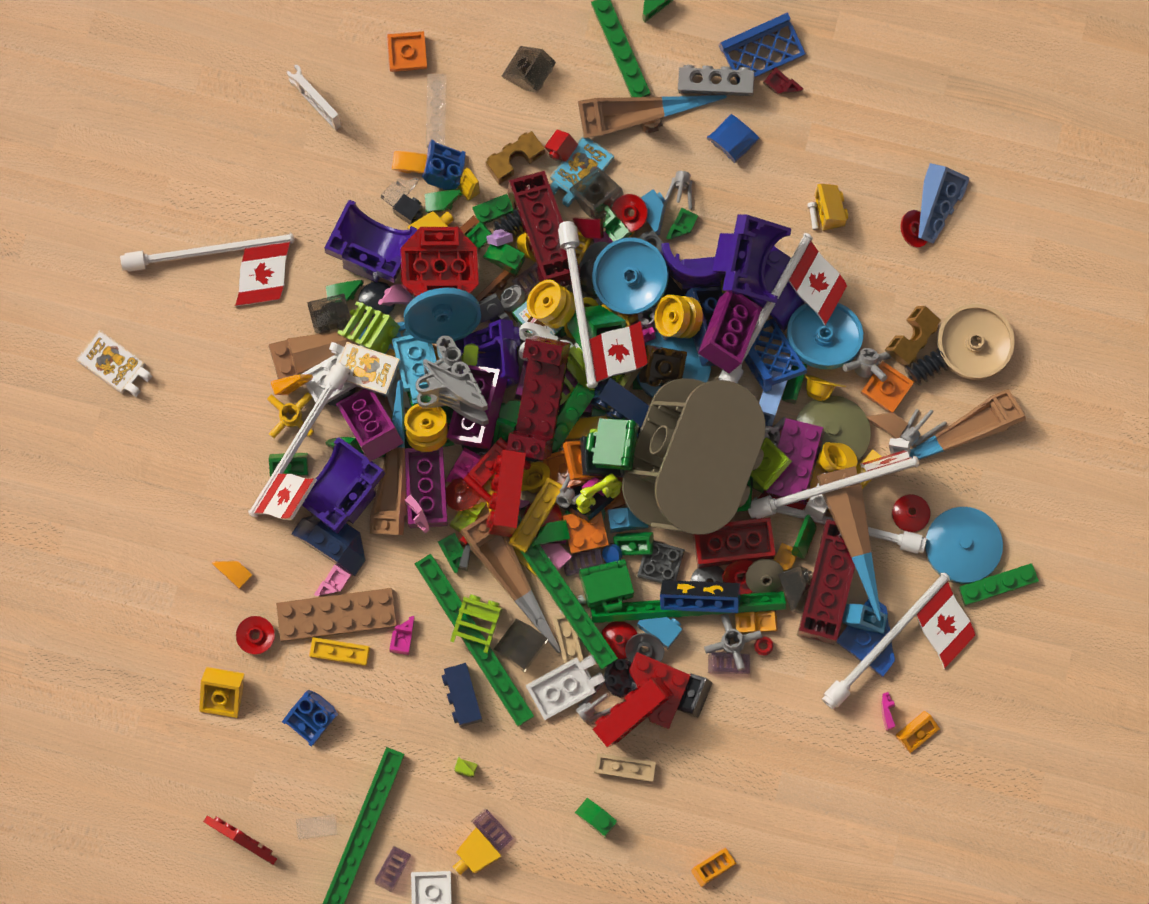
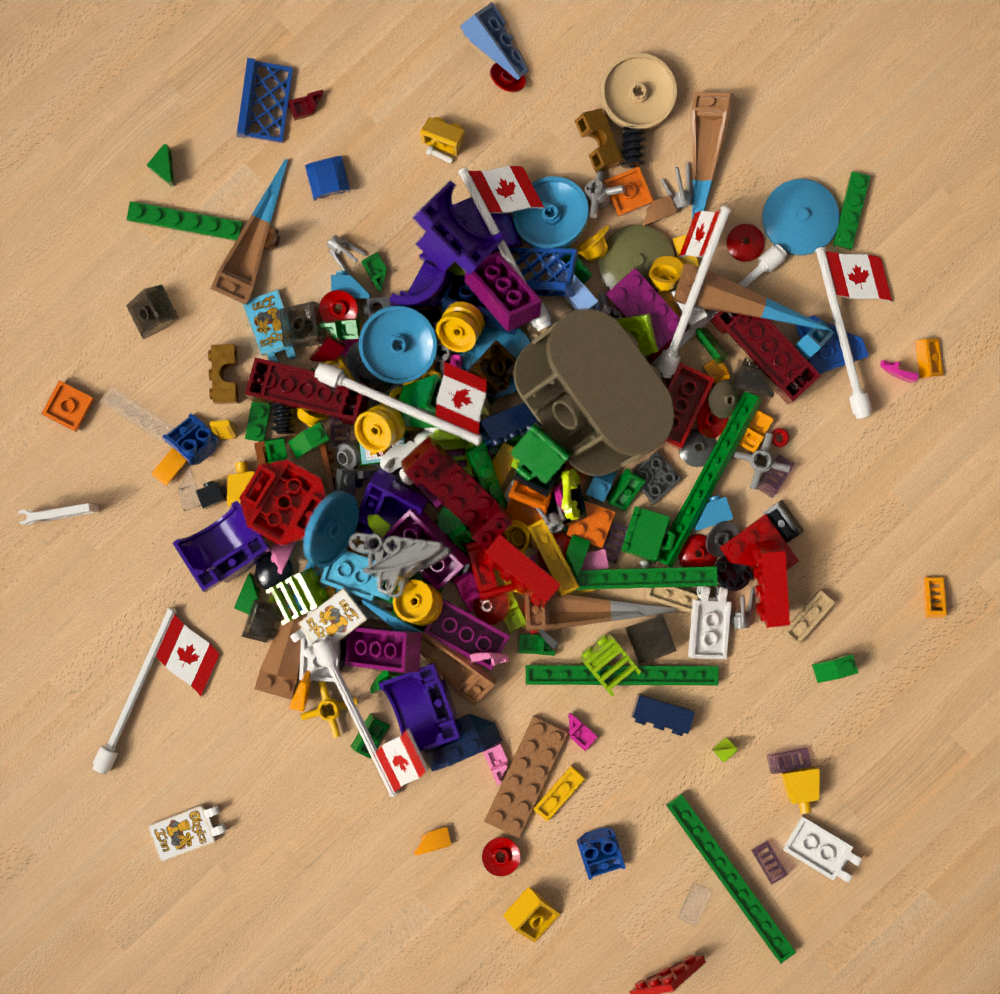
camera: 55 degrees left, 10 degrees up
(441, 200) = (221, 461): green slope -> none
(499, 238) = (291, 434): lavender plate -> none
(561, 146) = (240, 328): red brick -> none
(612, 553) = (623, 513): blue tile -> none
(700, 596) = (708, 464): brick -> none
(744, 88) = (290, 139): light grey brick -> none
(898, 445) = (685, 214): white plate -> none

